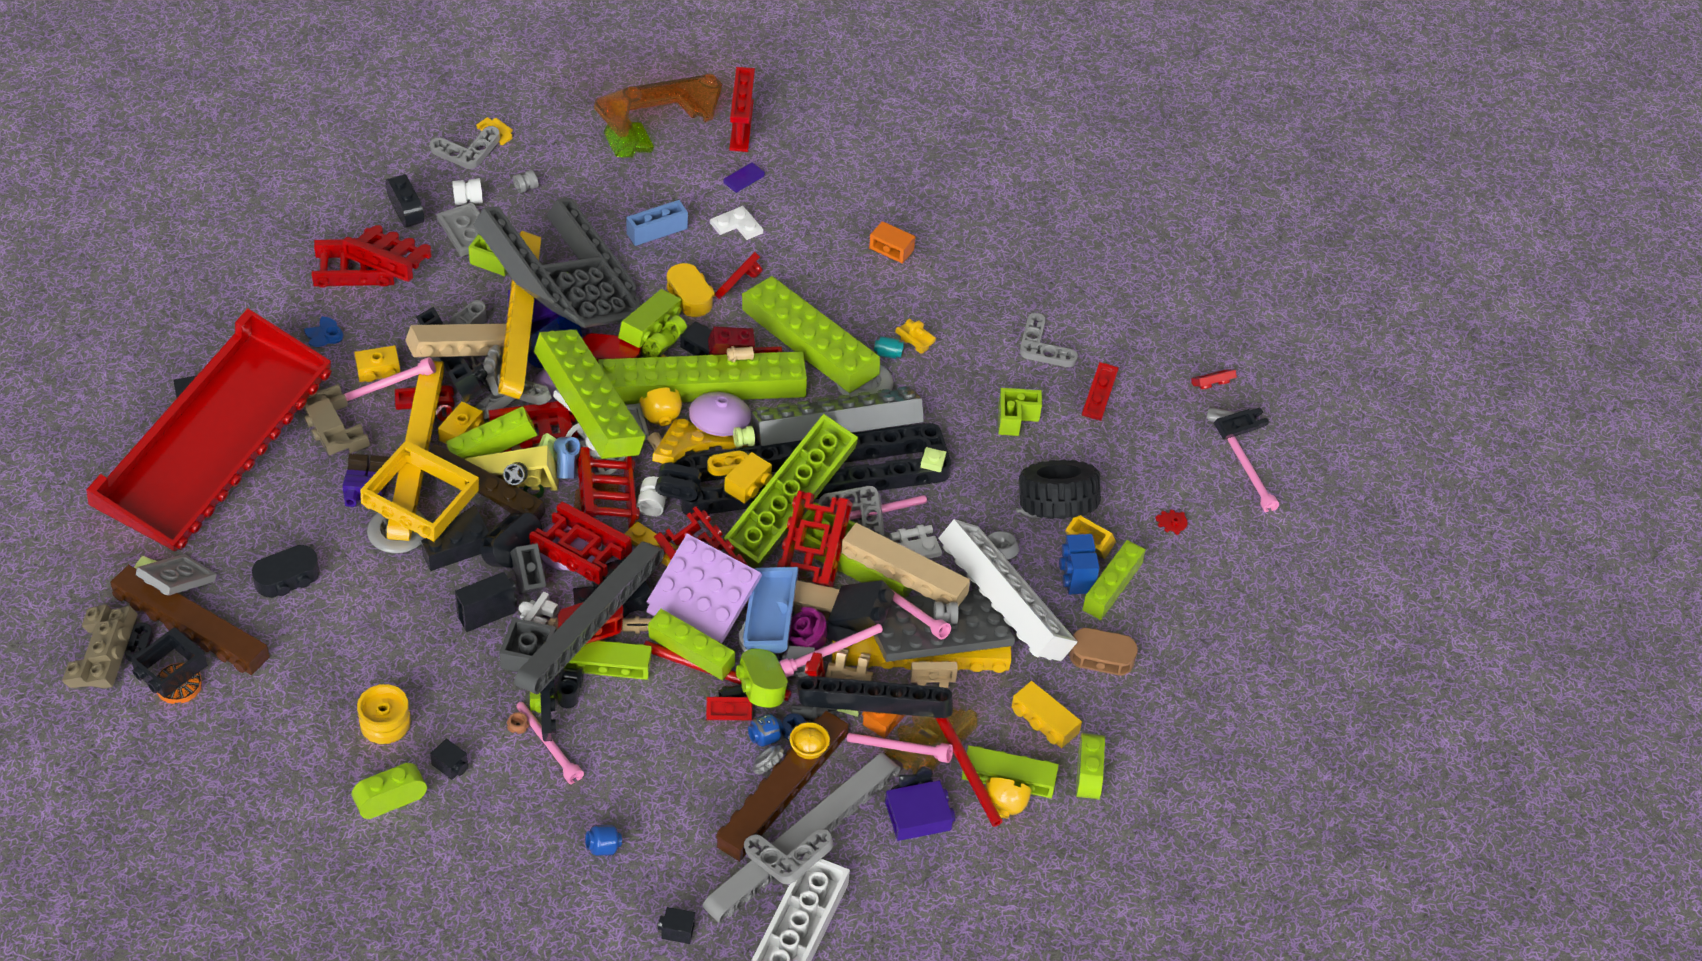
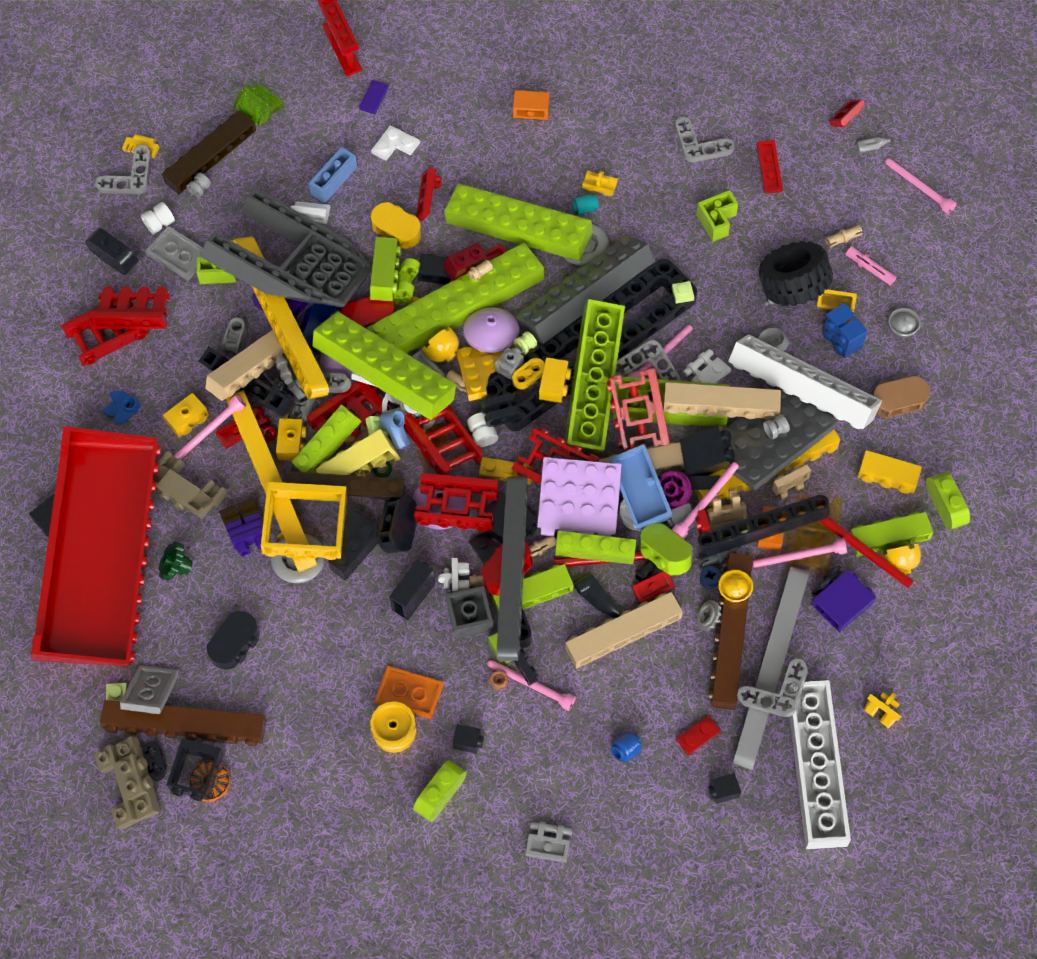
camera: 20 degrees left, 15 degrees up
(278, 480) = (174, 562): none -> dark green plant
(427, 695) = (411, 689): none -> orange tile
(462, 895) = (548, 847): none -> light grey plate
(511, 473) = (371, 470): wheel -> none
(528, 569) = (428, 544): dark grey brick -> none
(555, 157) = (209, 151): none -> dark brown brick
(622, 250) = (314, 211): none -> white panel
(665, 690) = (593, 592): none -> black piece
(672, 734) = (623, 630): none -> tan brick
(685, 866) = (698, 735): none -> red plate
(694, 94) = (242, 78): clear orange windscreen -> none
(715, 444) = (508, 367): none -> light grey brick
(765, 730) = (691, 591): blue head -> none
(888, 921) = (874, 704): none -> yellow hips
(939, 628) = (781, 443): bright pink piece -> none
(1113, 580) = (875, 324): lime brick -> none
(1139, 484) = (843, 236): none -> tan pin
(1139, 505) = (853, 253): none -> bright pink pin
(1152, 587) = (904, 322): none -> light grey hat
(1172, 521) = (885, 256): red piece -> none
(1240, 423) = (889, 146): black hinge -> none

